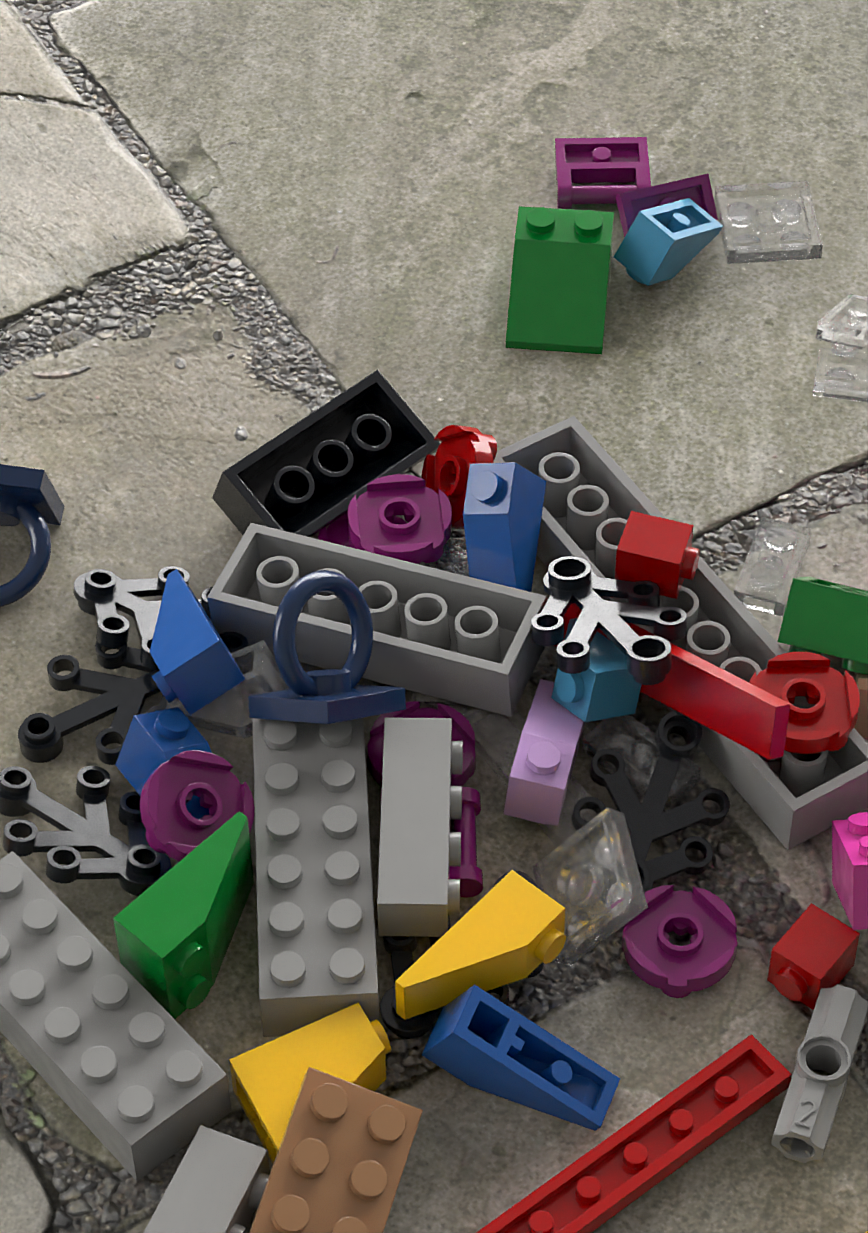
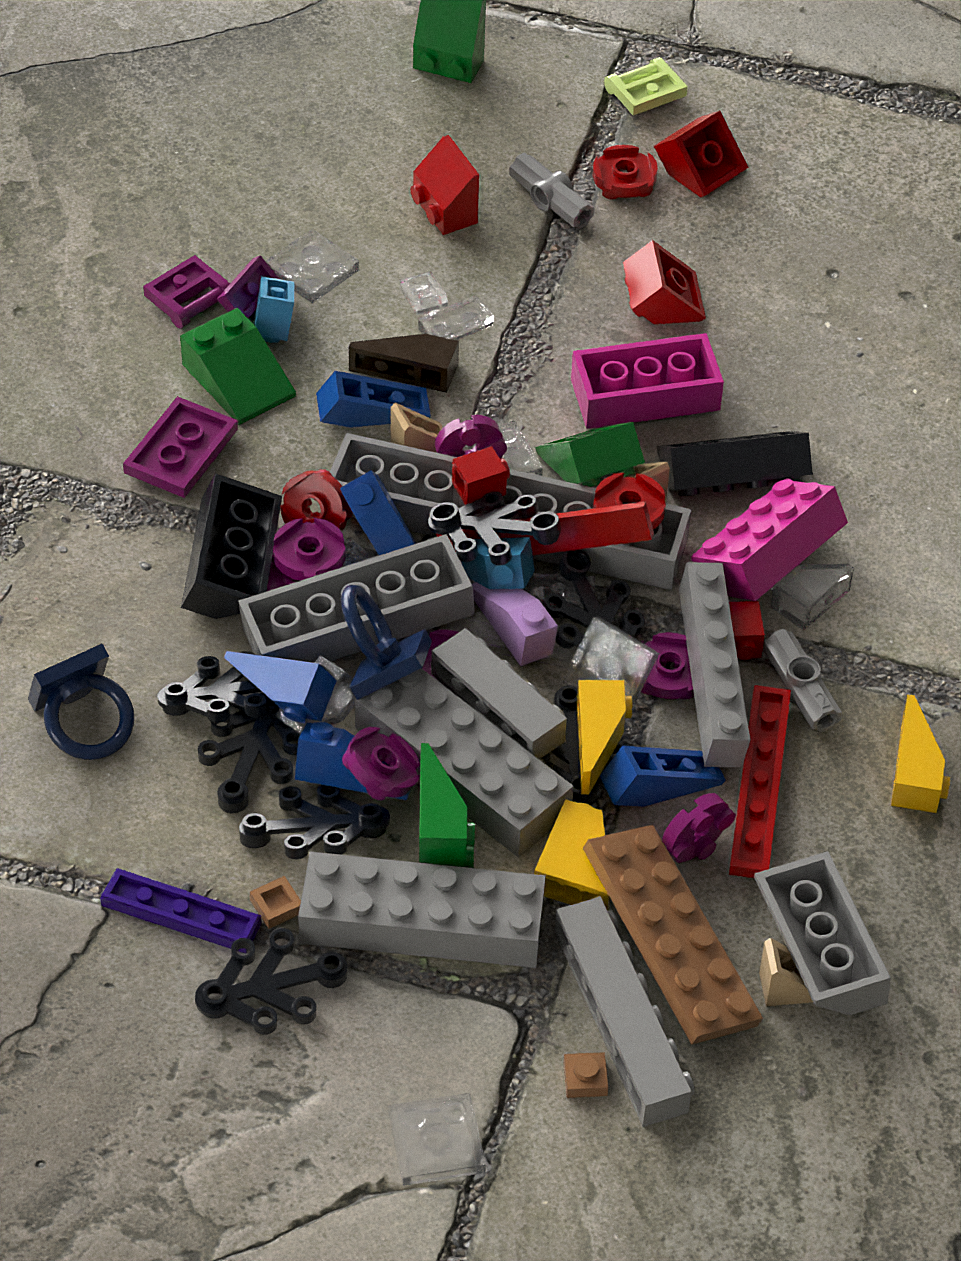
camera: 45 degrees left, 0 degrees up
(409, 328) = (180, 446): none -> magenta plate
(470, 1158) = (697, 831): none -> magenta plate
(665, 406) = (366, 401): none -> blue slope
(677, 474) = (413, 428): none -> tan slope
(711, 972) = (714, 665): none -> light grey brick
(736, 518) = (479, 431): none -> magenta plate
(763, 387) = (410, 359): none -> dark brown slope

